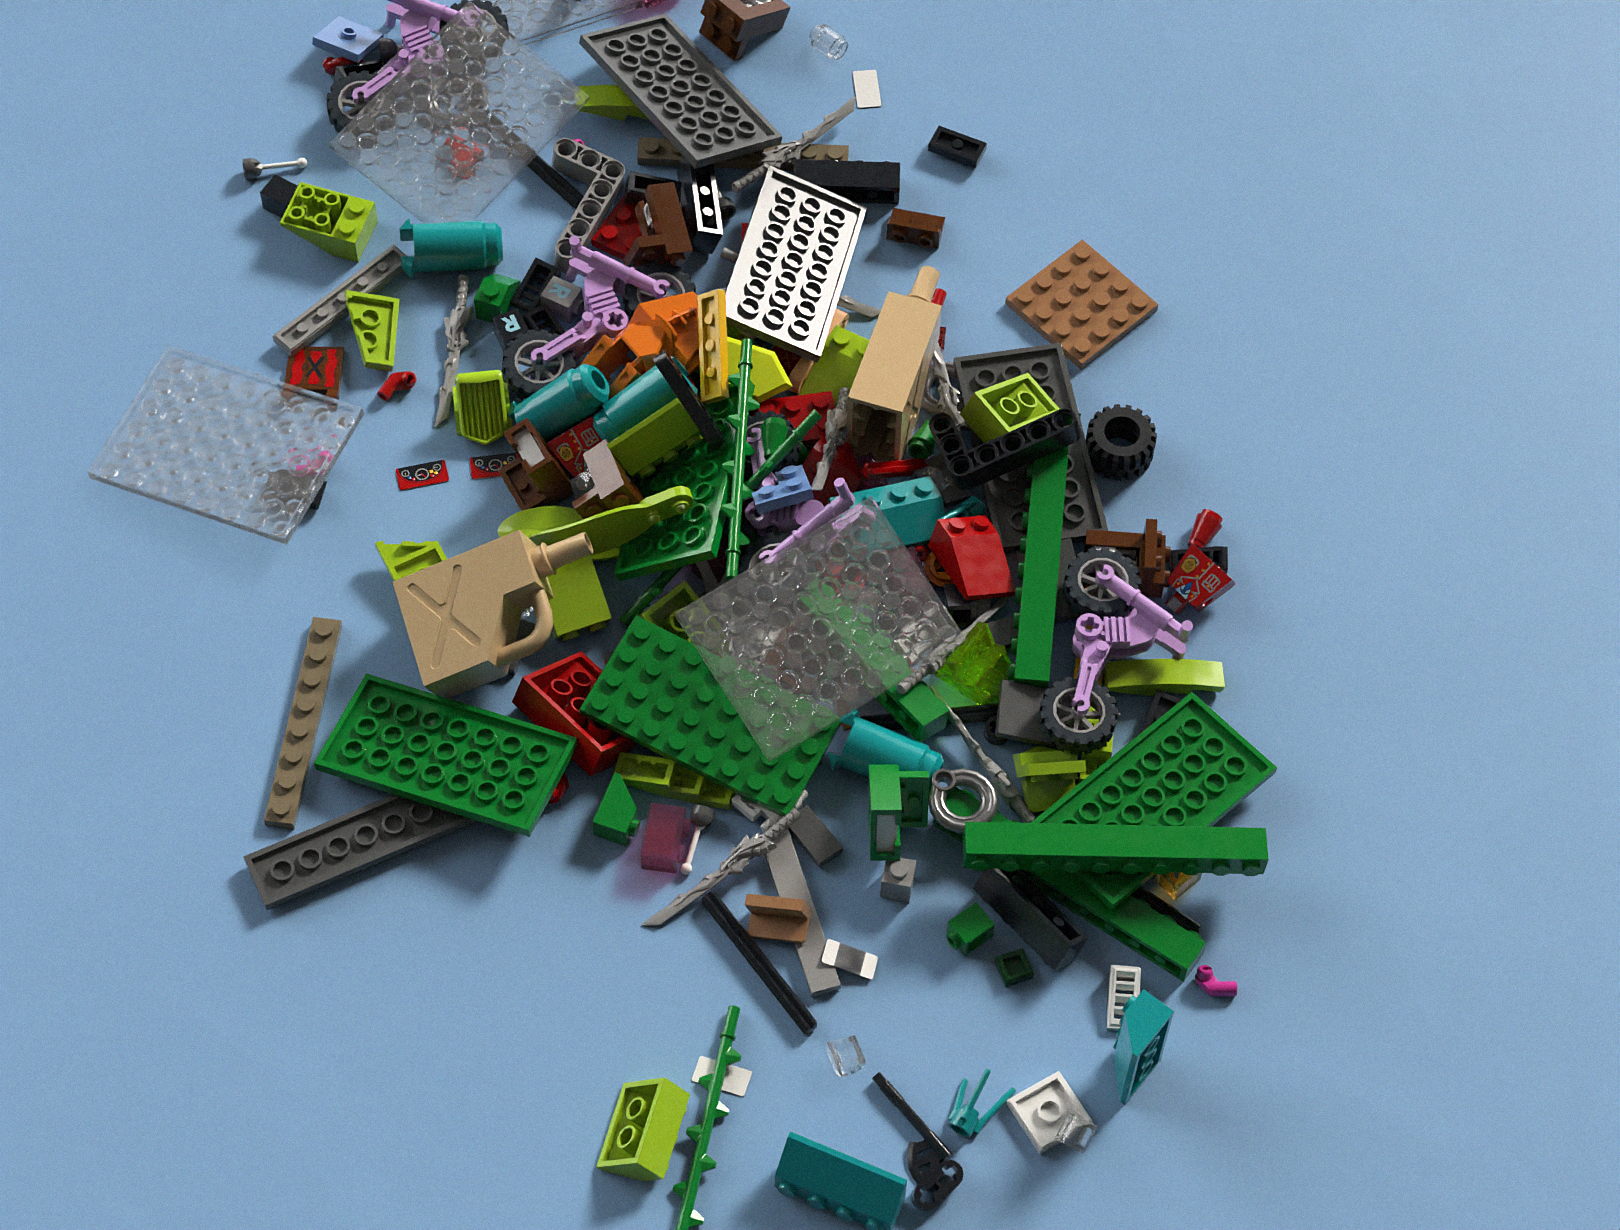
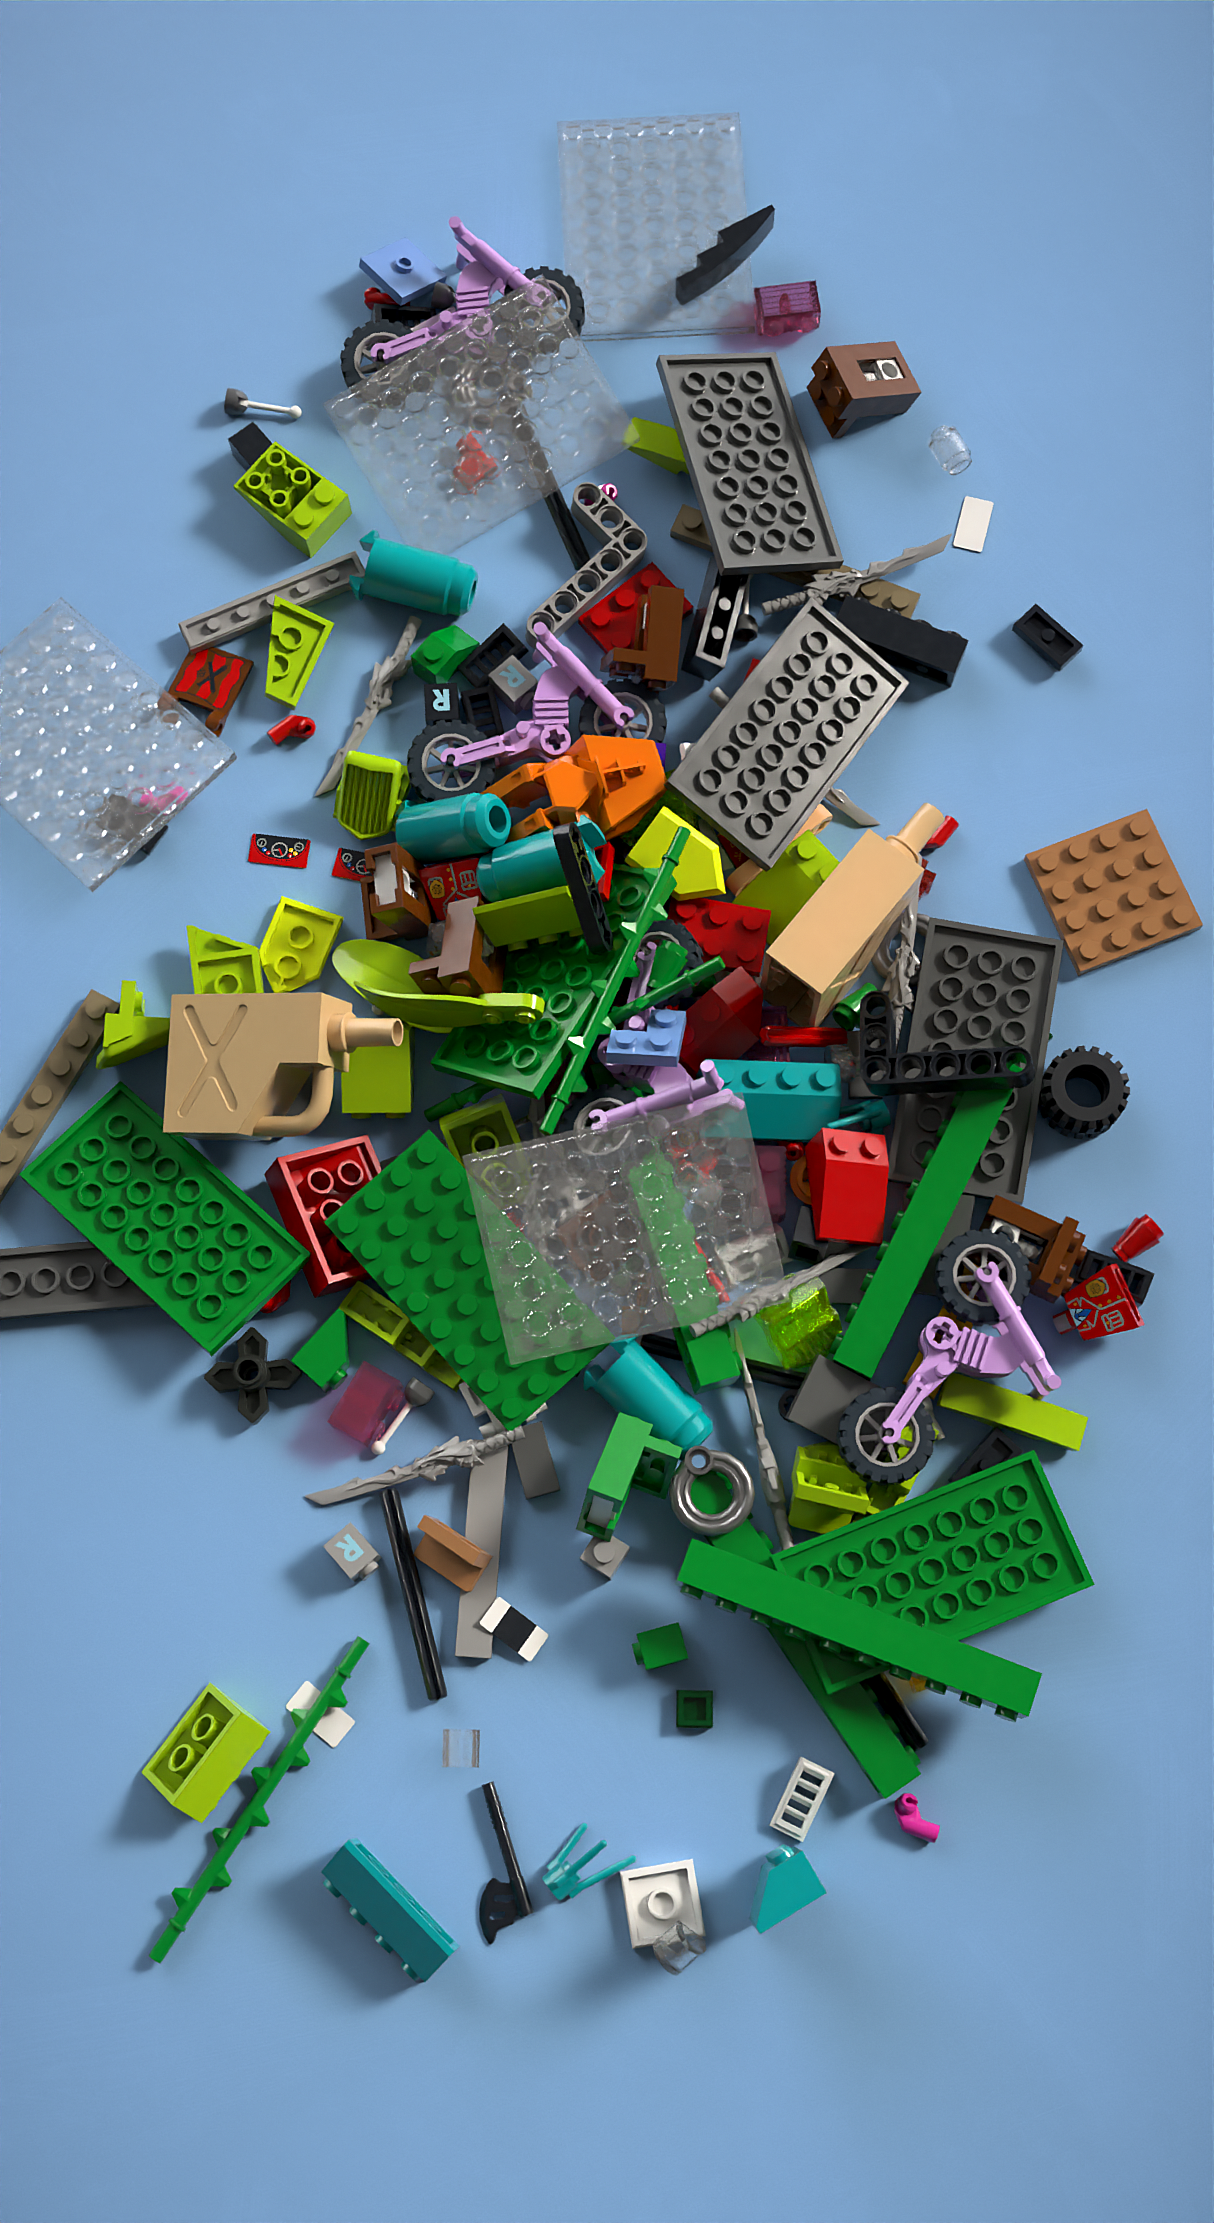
camera: 25 degrees right, 15 degrees up
(364, 631) = (130, 1031): none -> lime piece
(465, 526) = (297, 944): none -> neon yellow tile
(564, 849) = (271, 1375): none -> pearl dark grey plant
(638, 183) = (663, 566): black slope -> none
(699, 946) = (353, 1553): none -> light grey brick
(713, 346) = (644, 820): yellow plate -> none
(835, 424) = (742, 981): light grey sword -> none
(915, 228) = (956, 727): reddish brown bracket -> none
(942, 1191) = (496, 1938): black beam -> none
(1006, 407) = (966, 1012): lime slope -> none
(1031, 916) = (737, 1666): black brick -> none

